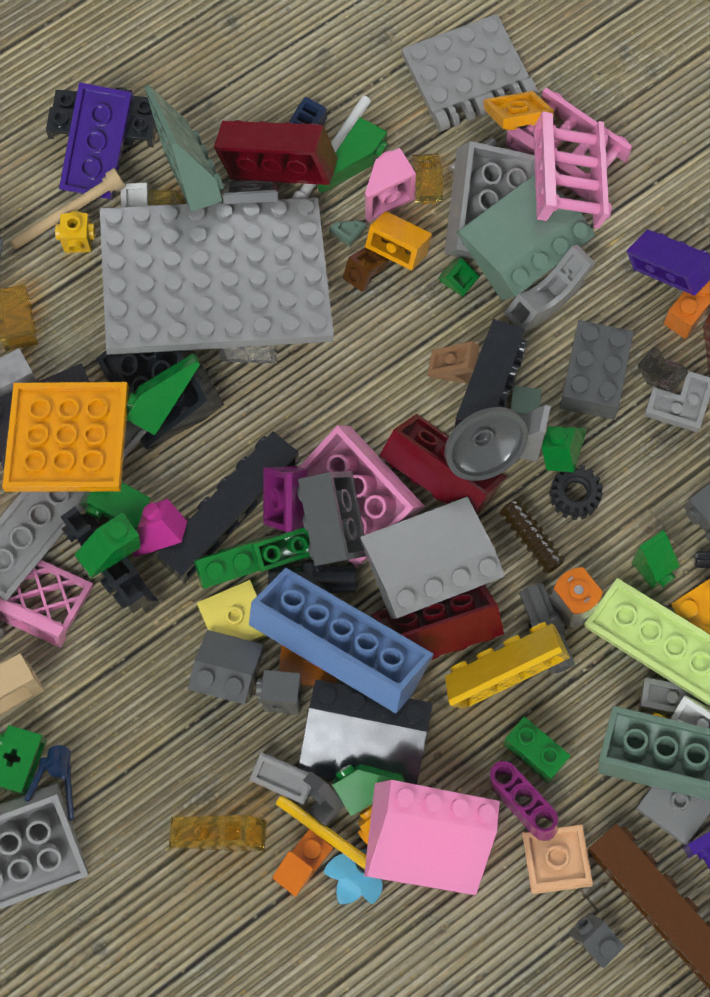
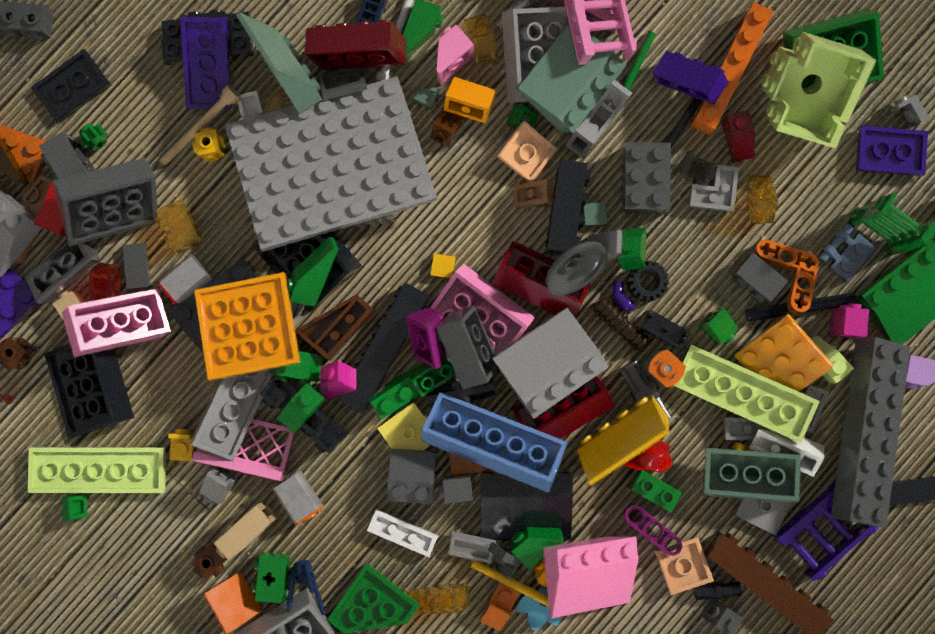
camera: 10 degrees left, 15 degrees up
(75, 666) = (298, 498): none -> flat silver piece
(137, 822) = (372, 604): none -> green plate
(176, 467) = (336, 327): none -> reddish brown wedge
(198, 740) = (402, 533): none -> white plate
(322, 424) = (443, 266): none -> yellow tile
(455, 313) = (526, 152): none -> light nougat plate
(535, 700) = (652, 458): none -> red piece
(538, 508) = (620, 299): none -> dark purple arm
(584, 554) = (664, 330): none -> black hinge
(596, 902) = (717, 591): none -> black pin
(614, 236) = (639, 60): none -> green bar
(655, 316) = (683, 121): none -> black bar

